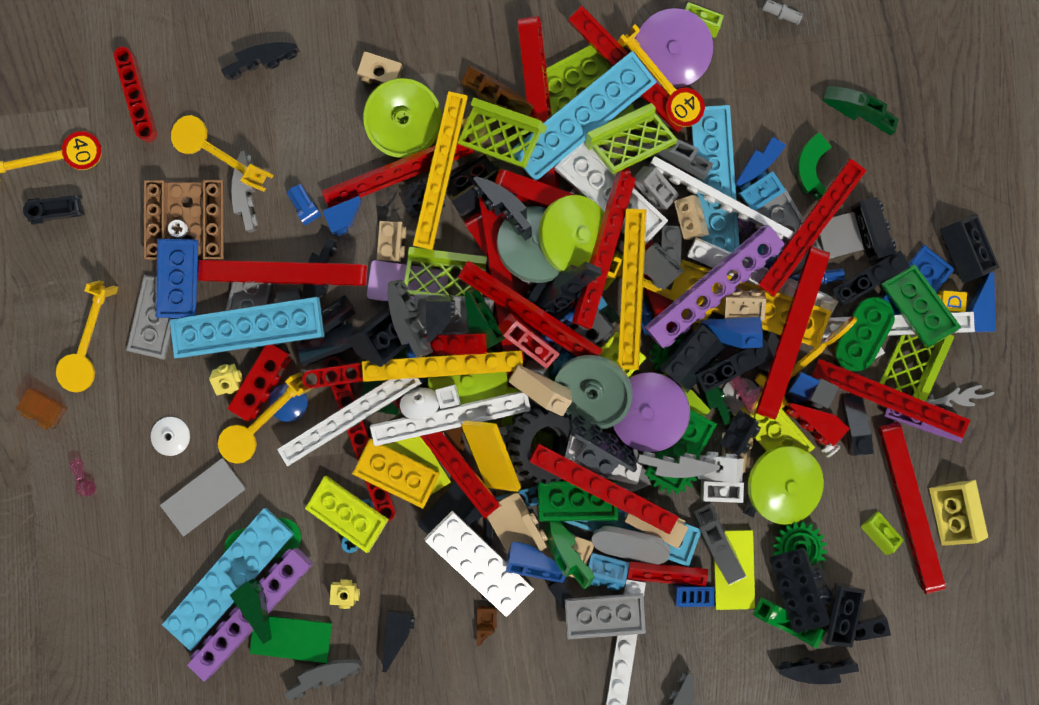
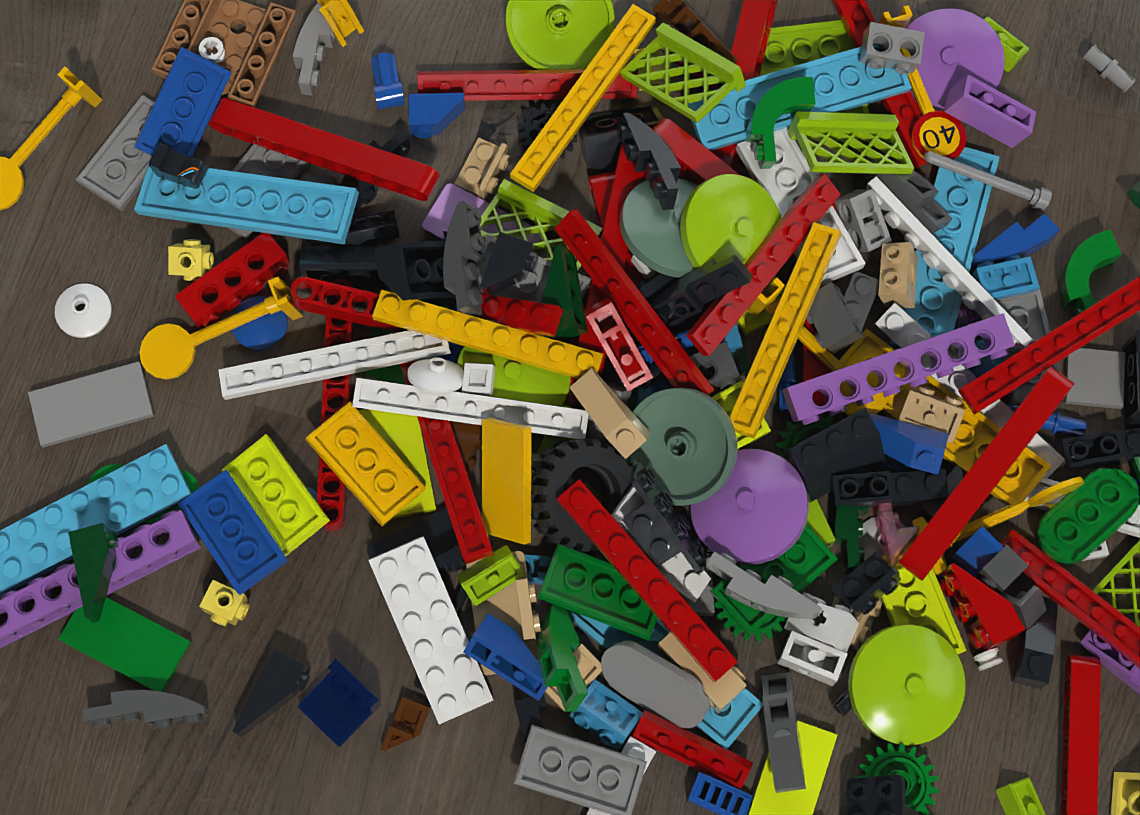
camera: 20 degrees right, 15 degrees down
(191, 322) = (177, 167): none -> black leg
(330, 549) = (233, 532): none -> blue plate
(440, 628) = (339, 704): none -> clear blue bracket
(504, 516) = (490, 575): none -> lime slope
(569, 138) = (782, 99): none -> green arch
(634, 57) = (891, 40): none -> light grey brick
(714, 77) = (990, 111): none -> medium lavender brick
(764, 124) = (1038, 198): none -> light grey piece
(843, 408) = (1027, 605): none -> flat silver panel

